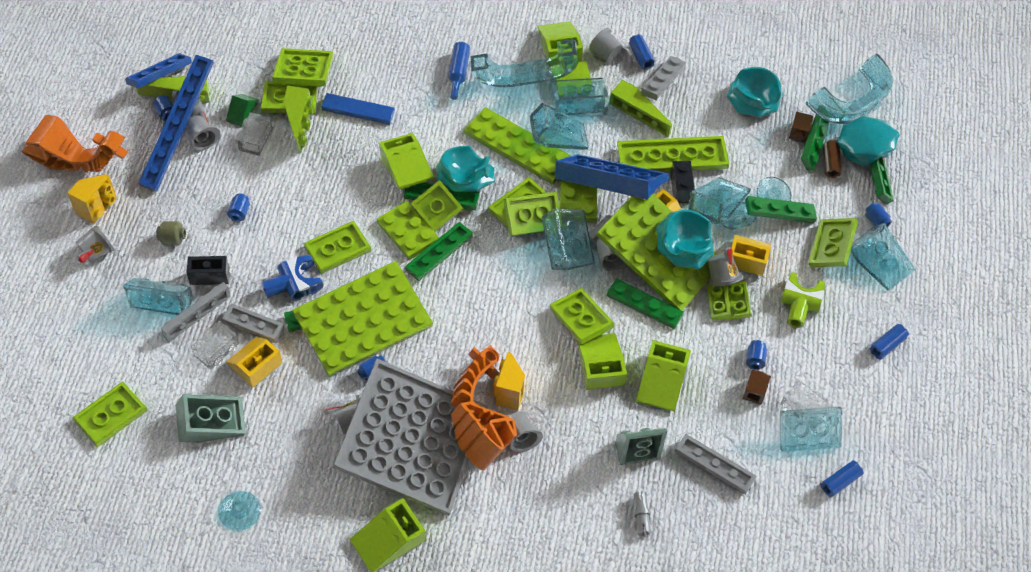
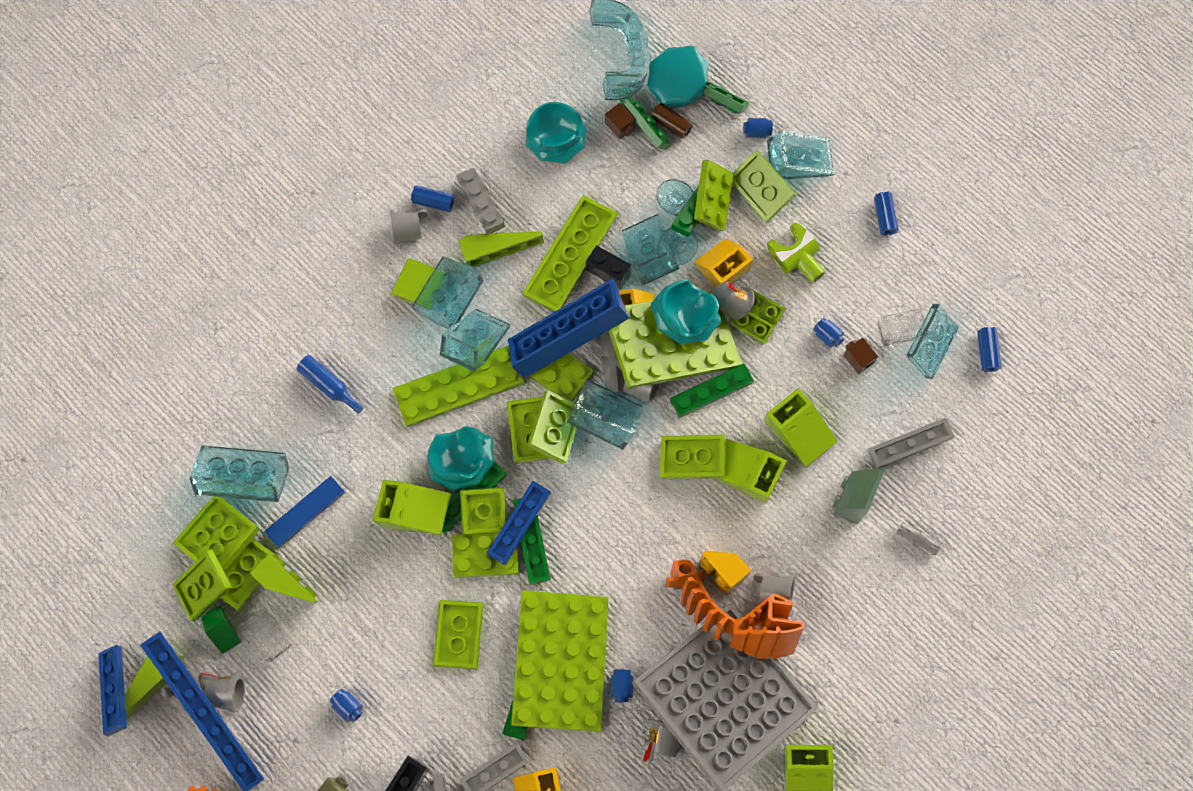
camera: 50 degrees left, 15 degrees up
(162, 106) = (164, 710): blue brick -> none
(262, 76) = (201, 585): none -> lime tile
(292, 281) = (470, 704): blue connector -> none
(355, 53) = (239, 473): none -> clear light blue brick
(444, 233) = (518, 523): none -> blue tile
(528, 72) = (360, 356): clear light blue arch -> none
(555, 32) = (366, 264): lime slope -> none
(795, 213) = (713, 195): none -> lime plate

